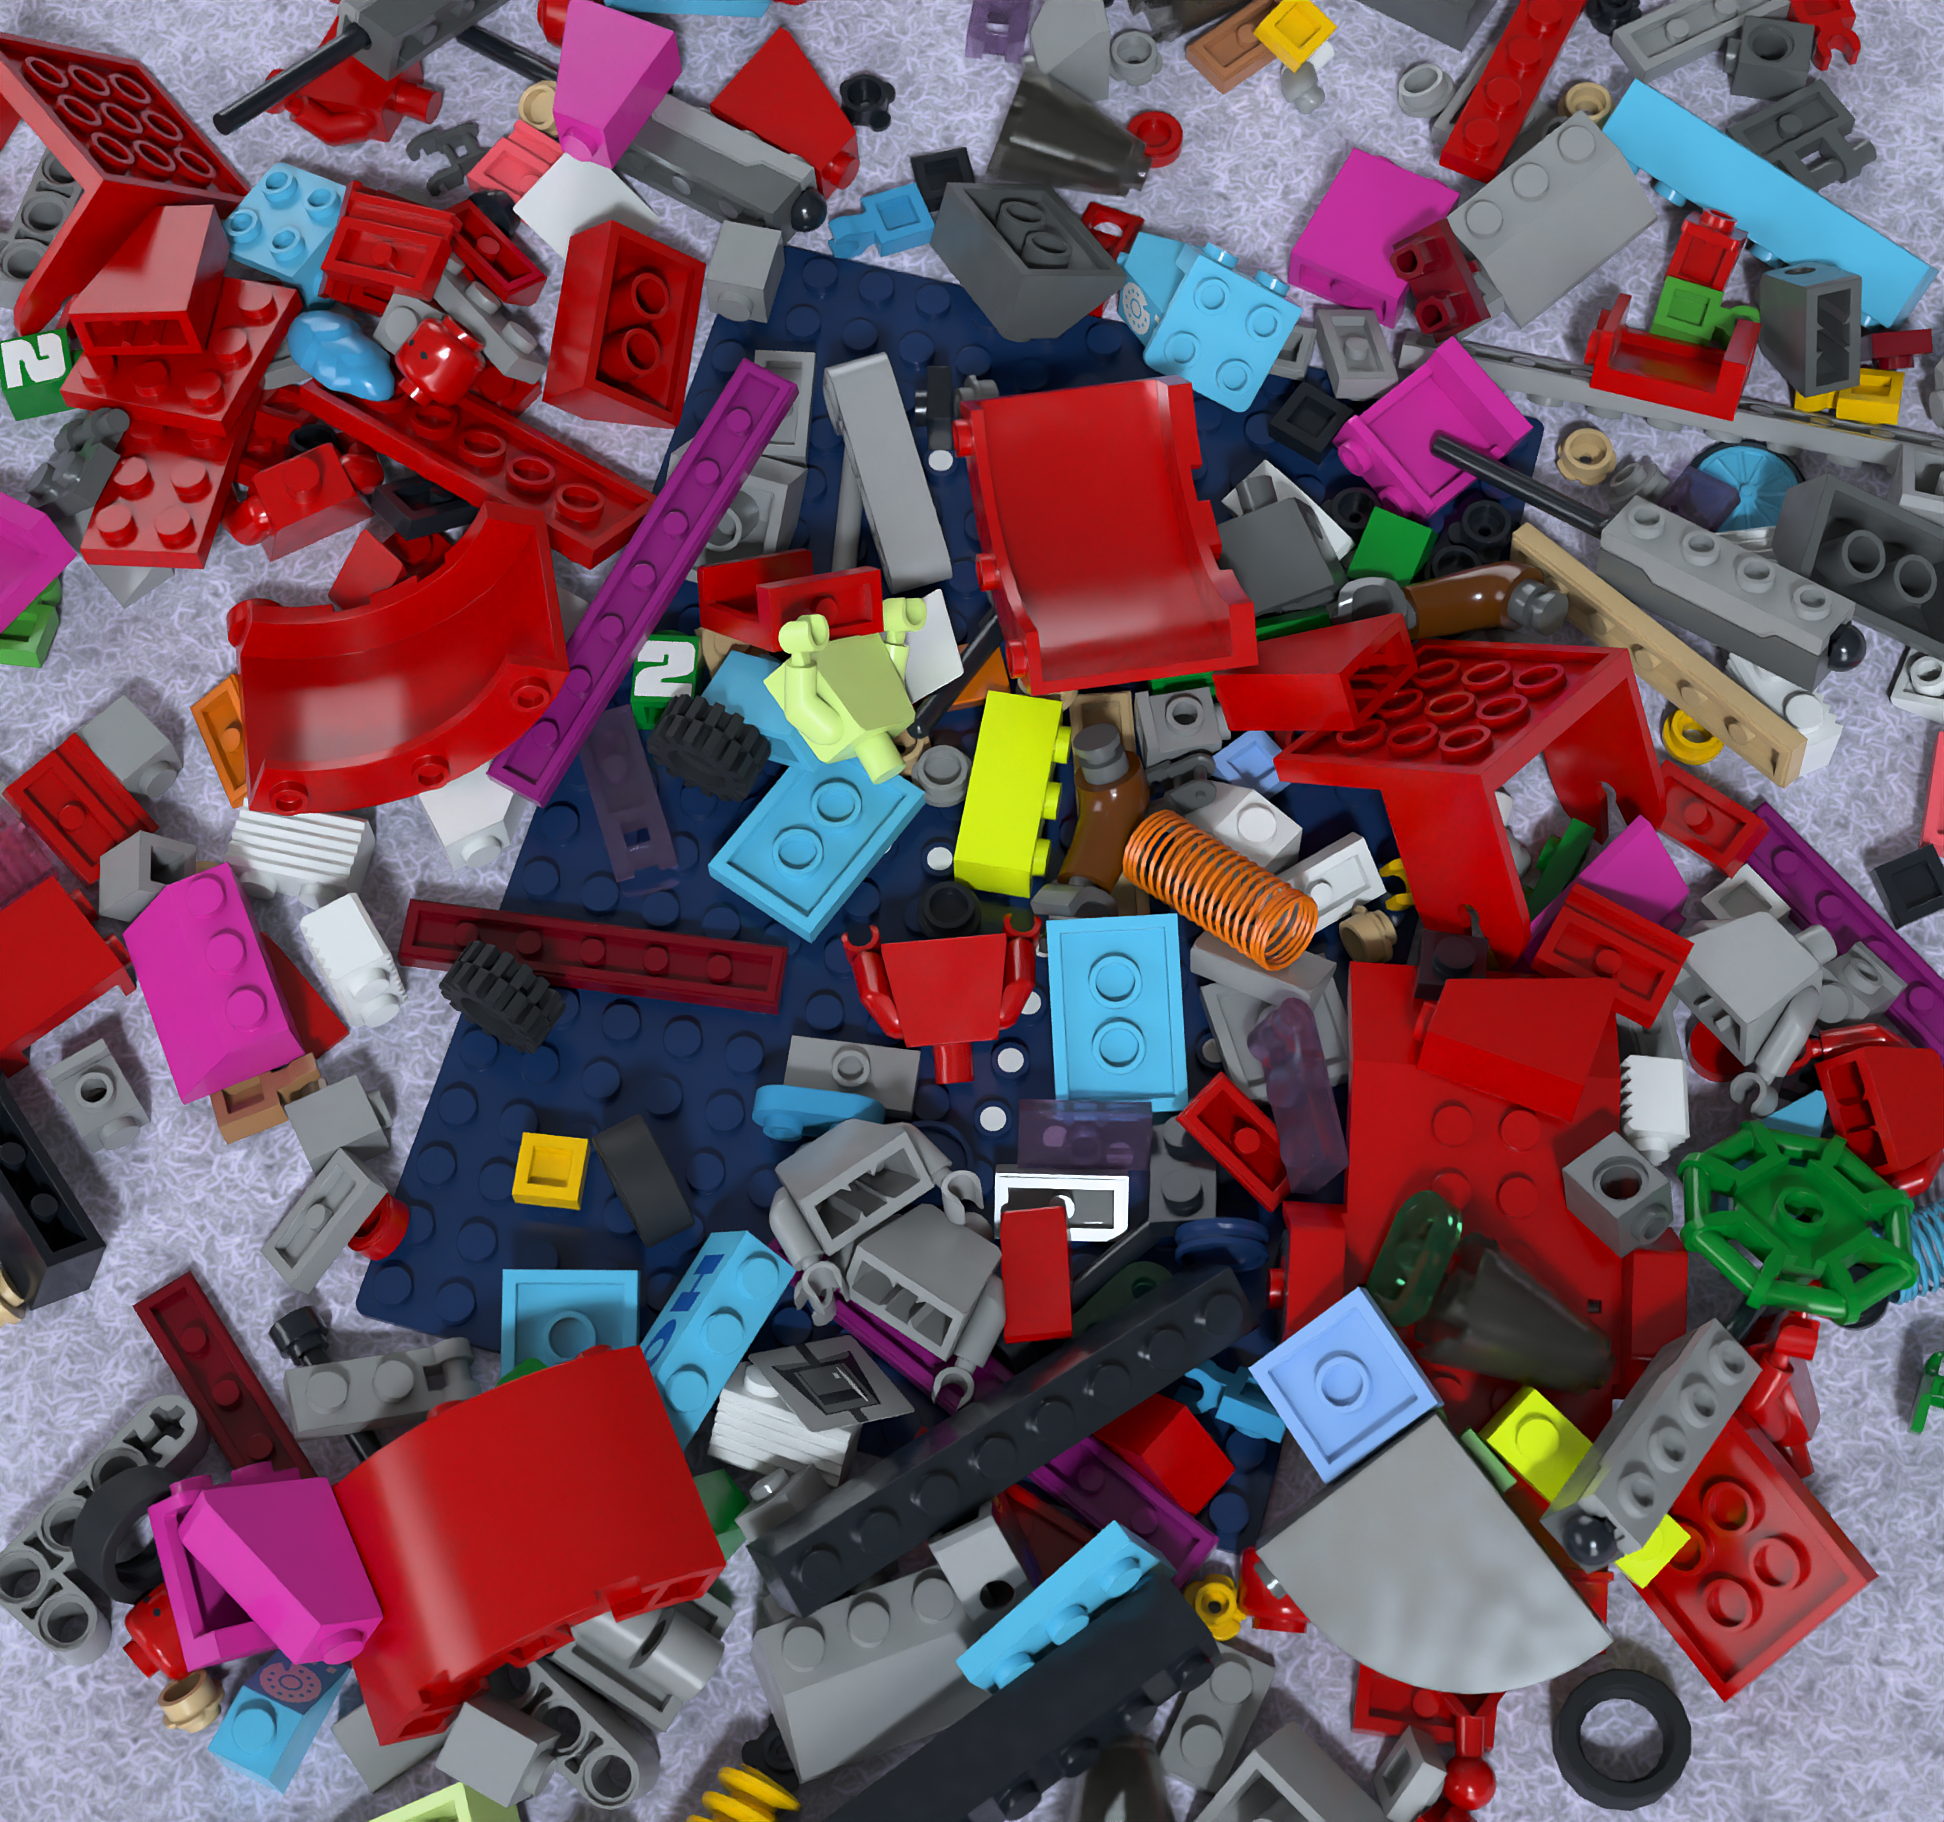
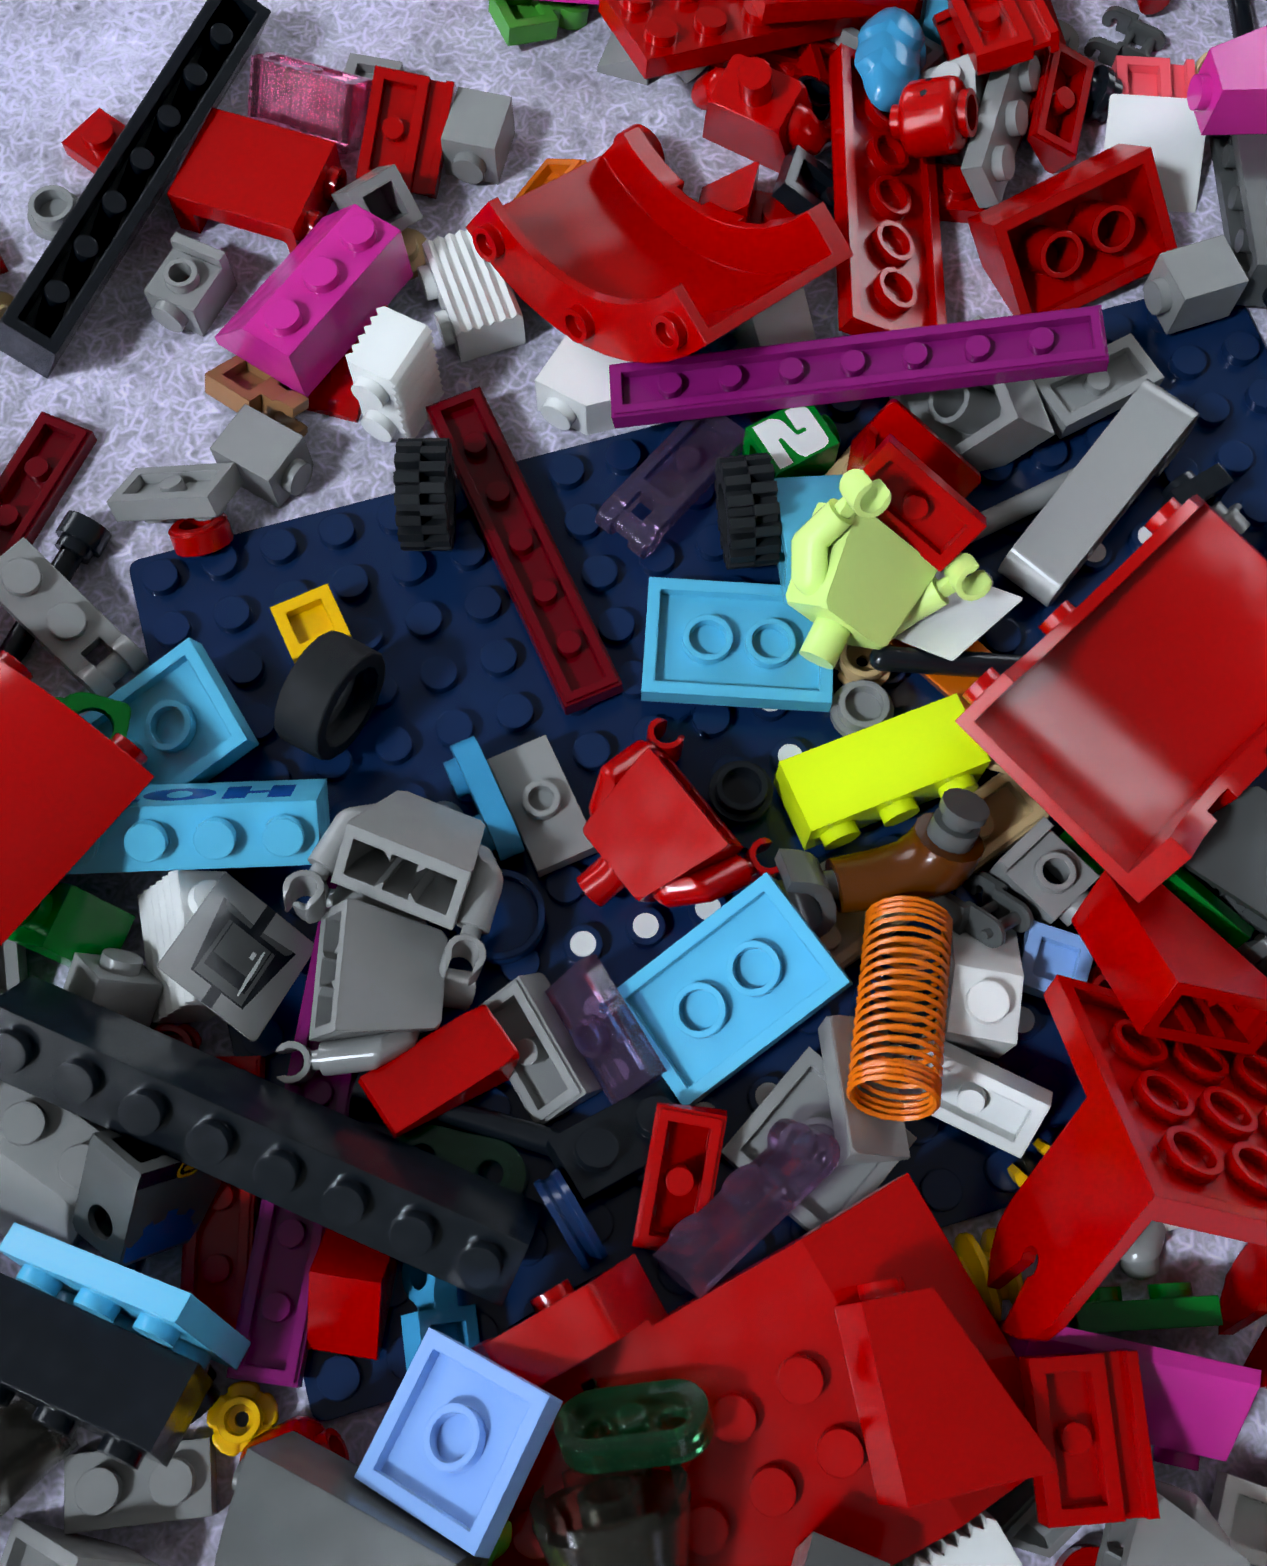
camera: 55 degrees right, 5 degrees up
(1368, 936) = (964, 1169): tan plate -> none
(1448, 957) = (967, 1274): black plate -> none

